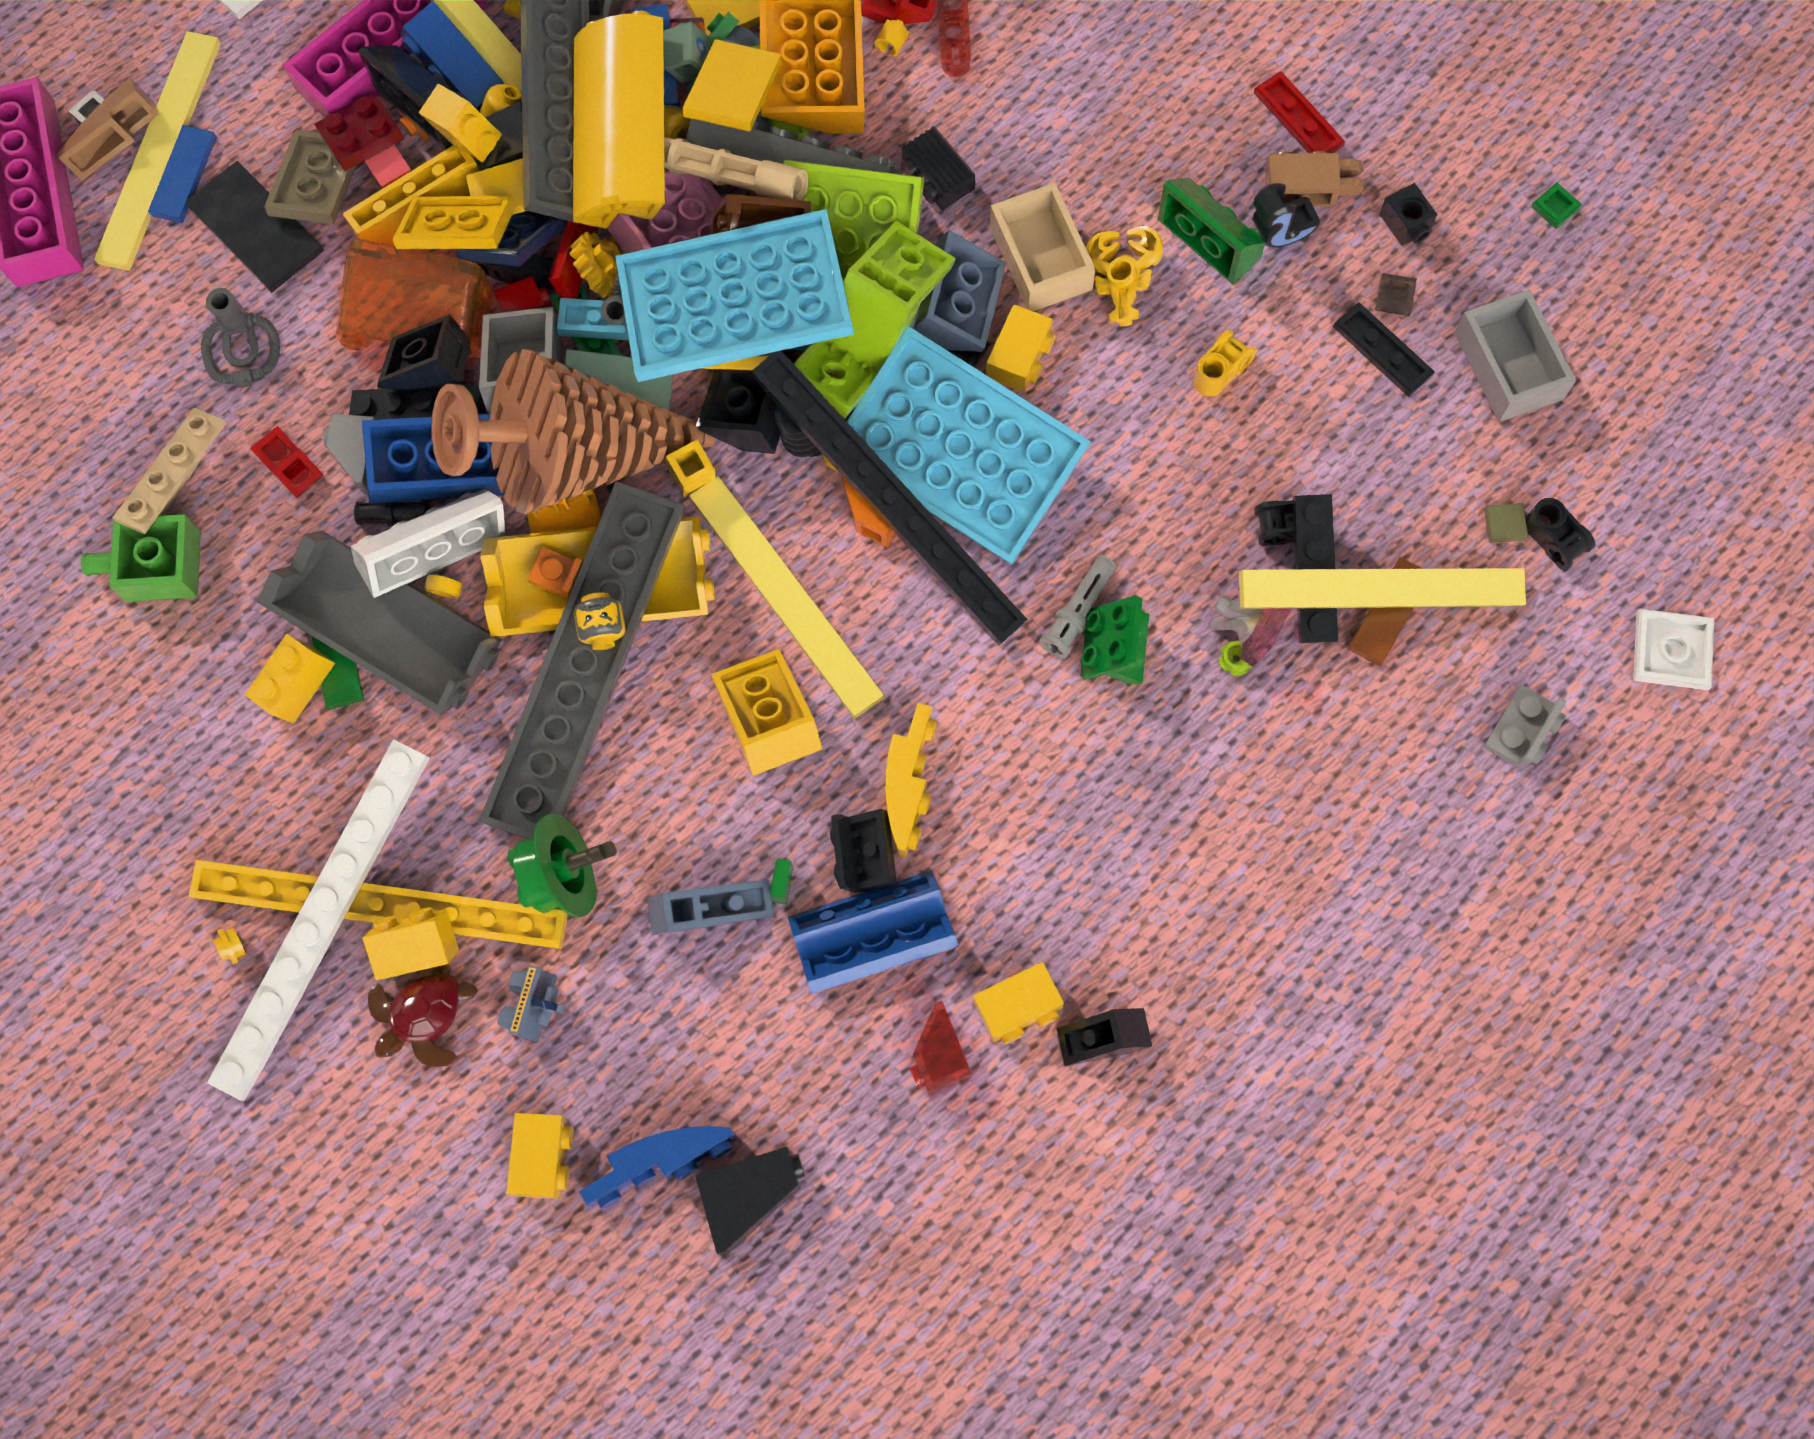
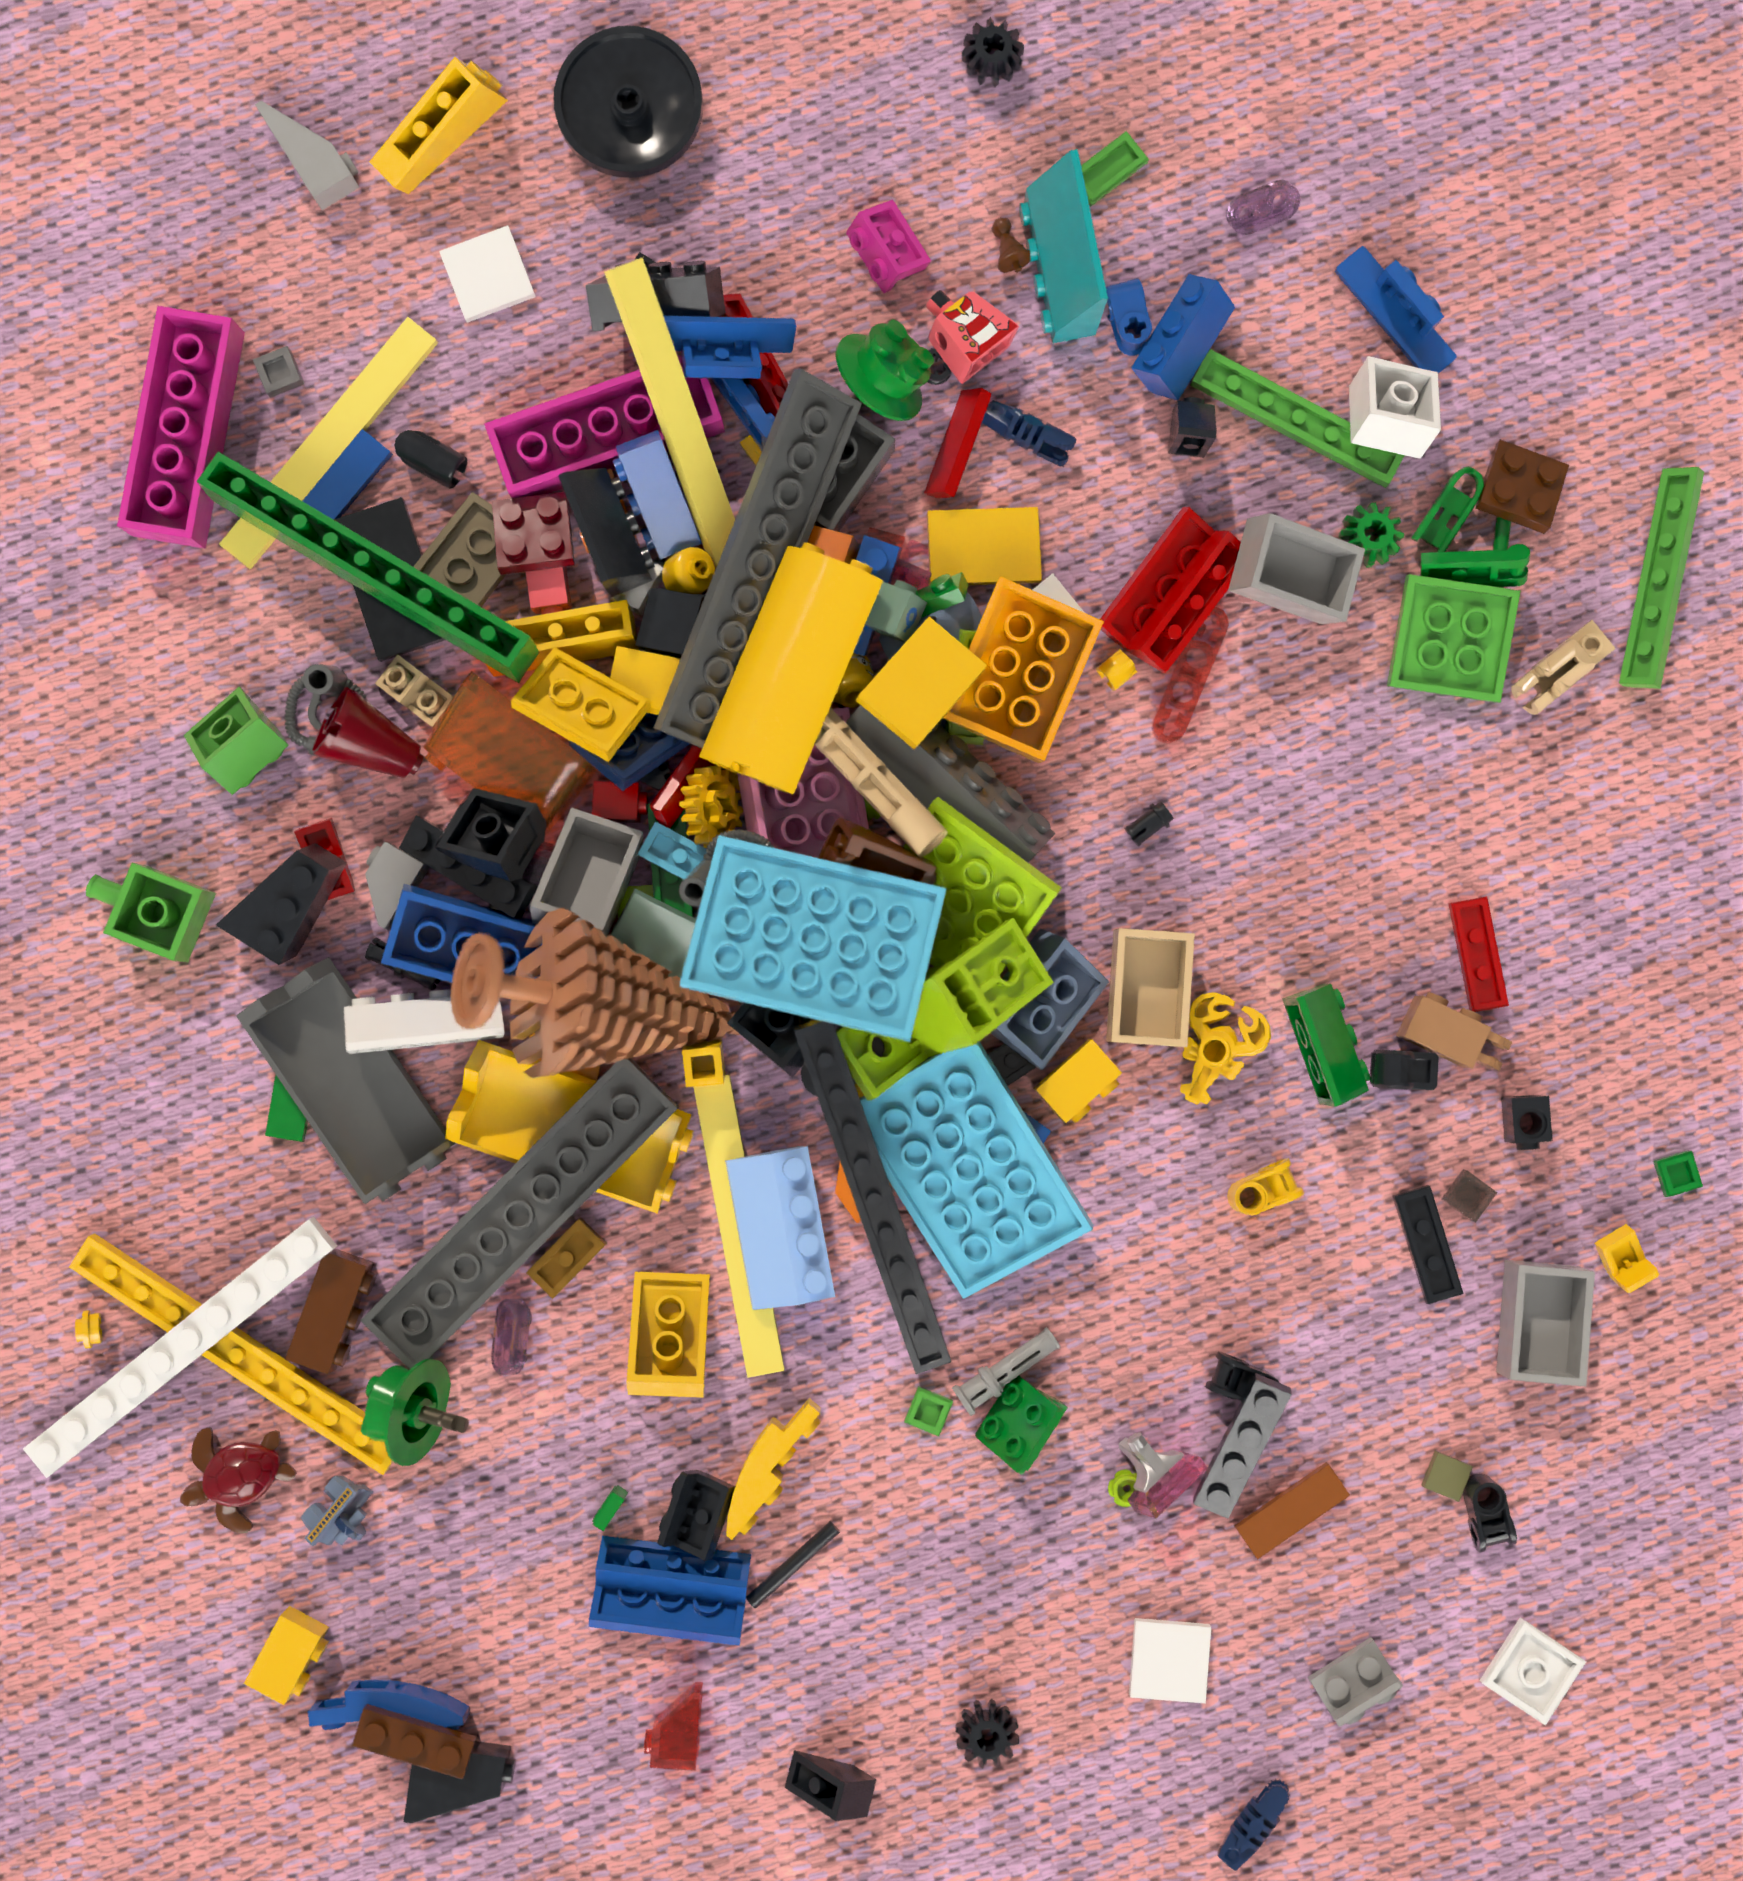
camera: 15 degrees right, 15 degrees up
(107, 129) = (285, 402): medium nougat slope -> none
(169, 396) = (235, 741): none -> bright green slope
(169, 471) = (204, 833): tan bracket -> none
(230, 202) = (369, 567): none -> green brick
(249, 120) = (430, 457): none -> black arm
(265, 498) = (286, 904): none -> black wedge
(283, 342) = (366, 738): none -> dark red cone
(289, 678) = (239, 1100): yellow brick -> none
(308, 299) = (414, 691): none -> tan slope
(410, 943) = (250, 1414): yellow brick -> none
(443, 586) = (421, 1066): yellow tile -> none
(449, 826) = (331, 1311): none -> reddish brown brick
(460, 123) = (629, 603): yellow brick -> none
(555, 572) = (532, 1108): orange bracket -> none
(599, 620) = (547, 1193): head -> none
(623, 775) = (510, 1336): none -> clear purple plate
(644, 688) = (566, 1258): none -> pearl gold plate
(692, 1167) = (414, 1741): none -> reddish brown plate
(709, 906) = (532, 1500): sand blue slope -> none
(822, 572) = (780, 1228): none -> light blue slope
(944, 171) = (1091, 845): black brick -> none
(973, 861) = (792, 1564): none -> black bar
(980, 129) = (1149, 823): none -> black pin
(1019, 1003) = (768, 1720): yellow brick -> none
(1029, 674) = (928, 1411): none -> bright green tile
(1209, 918) = (1000, 1727): none -> black gear
(1353, 787) = (1170, 1660): none -> white tile
(1381, 588) = (1291, 1498): light yellow tile -> none
(1507, 891) = (1254, 1824): none -> dark blue hinge
(1550, 284) = (1625, 1259): none -> yellow bracket

